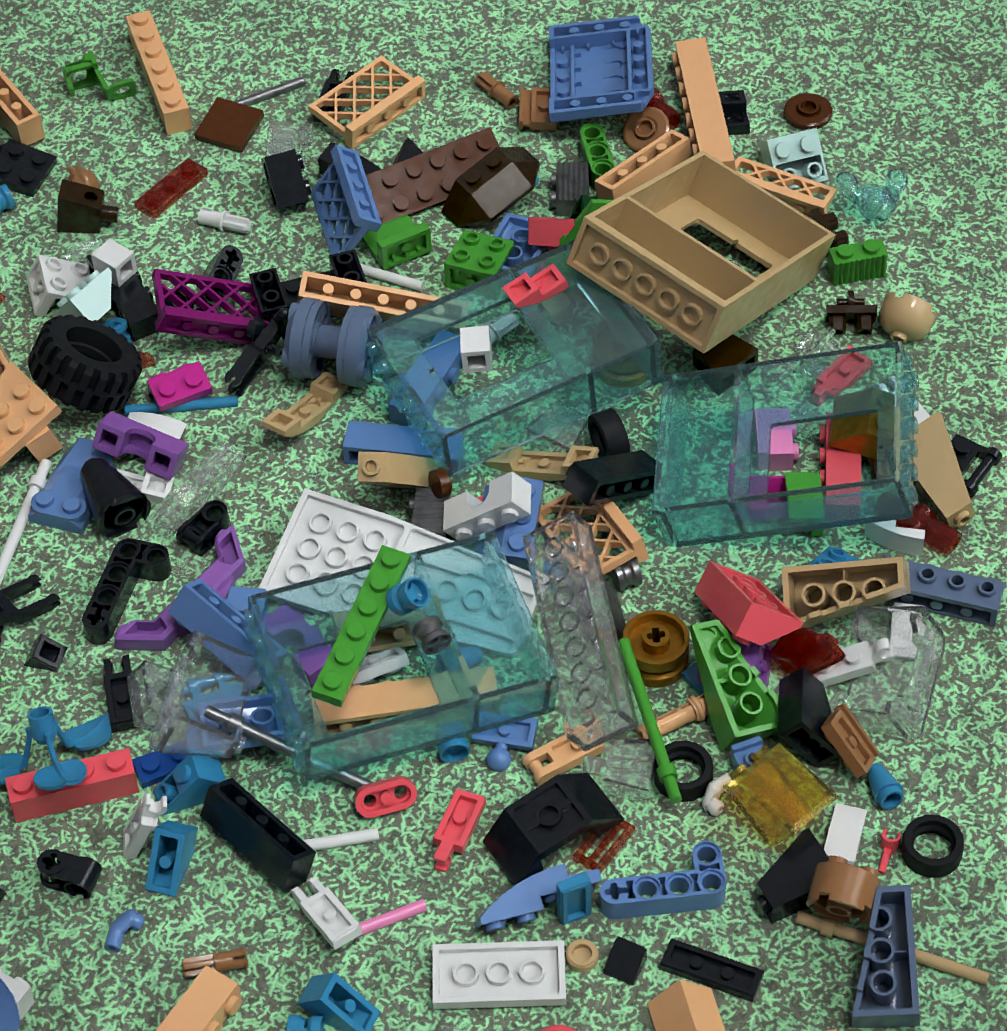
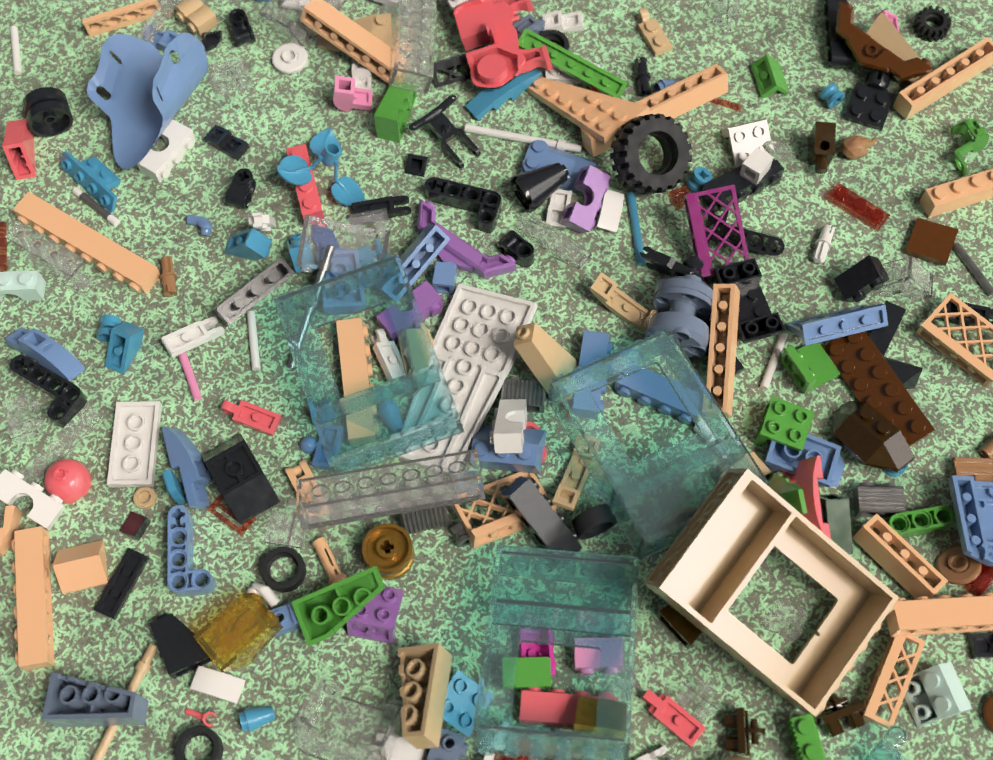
camera: 90 degrees right, 15 degrees up
(89, 298) = (716, 154): light aqua slope -> none
(179, 386) = (647, 223): dark pink bracket -> none
(360, 627) = (371, 328): bright green plate -> none
(384, 798) = (280, 370): coral plate -> none
(407, 596) = (383, 358): dark azure wheel -> none
(432, 635) = (357, 374): flat silver wheel -> none
(440, 482) = (539, 394): reddish brown tile -> none
(476, 349) = (635, 401): white brick -> none
(542, 286) = (706, 447): coral slope -> none
(666, 771) = (271, 552): bright green bar -> none
(745, 605) = (411, 617): coral slope -> none
(801, 715) = (312, 658): black slope -> none
(806, 650) = (374, 662): clear red slope -> none
(843, 890) = (143, 670): medium nougat brick -> none
(850, 740) = (287, 690): medium nougat plate -> none
(859, 661) = (367, 698): white plate -> none

